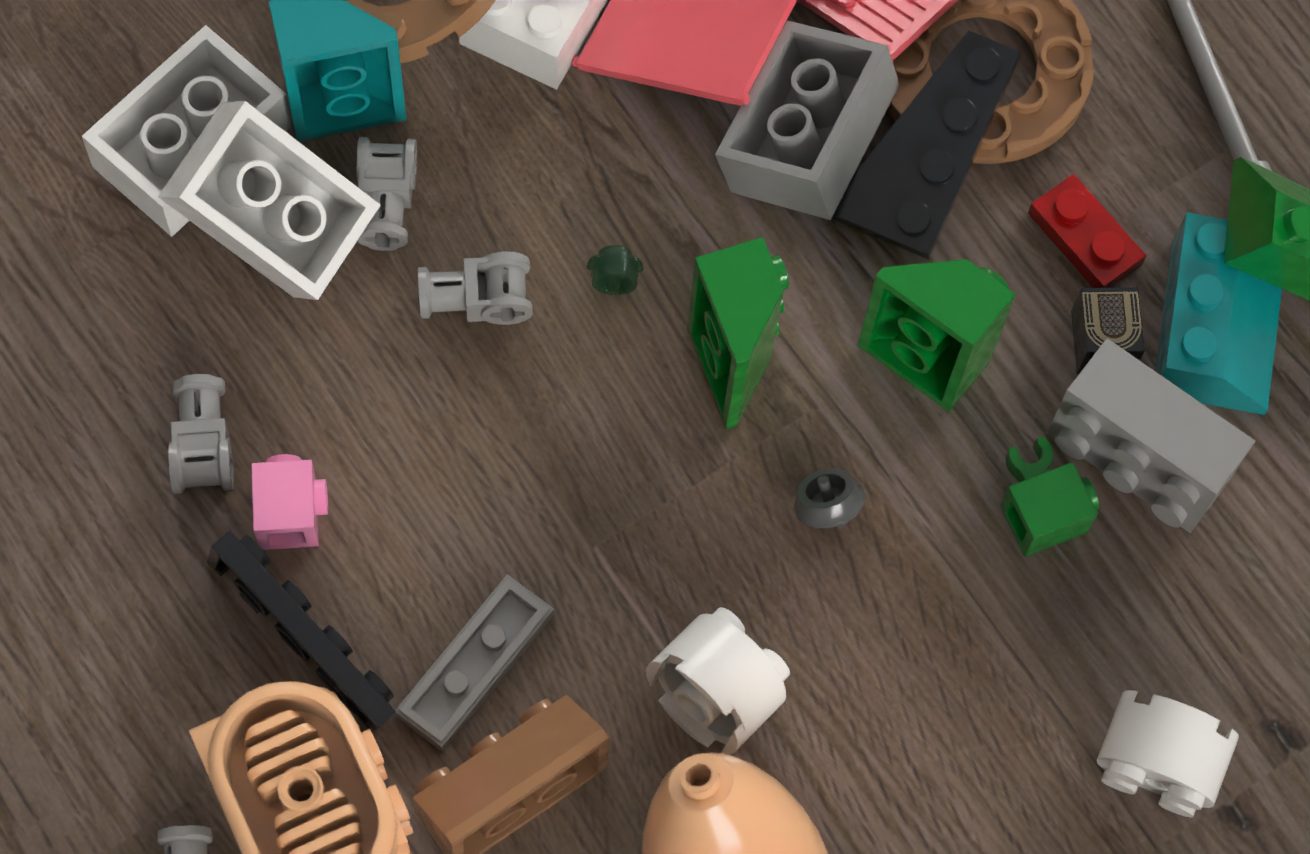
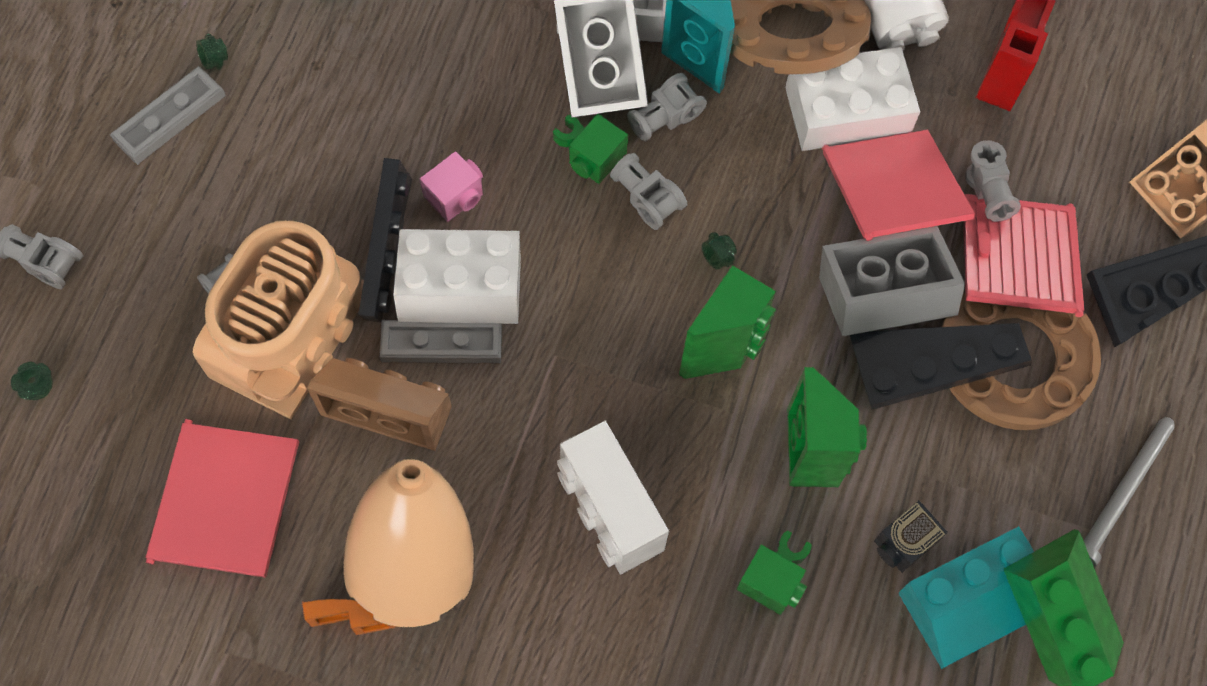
camera: 55 degrees right, 0 degrees up
(200, 445) = (453, 125): light grey connector -> none
(370, 303) = (593, 148): none -> green brick
(419, 578) = (457, 276): none -> white brick
(719, 680) = (518, 467): white brick -> none
(829, 498) = (678, 454): dark grey hat -> none
(839, 604) = (611, 498): none -> white brick
(1086, 233) = (963, 485): red plate -> none
(1148, 436) = (858, 603): light grey brick -> none

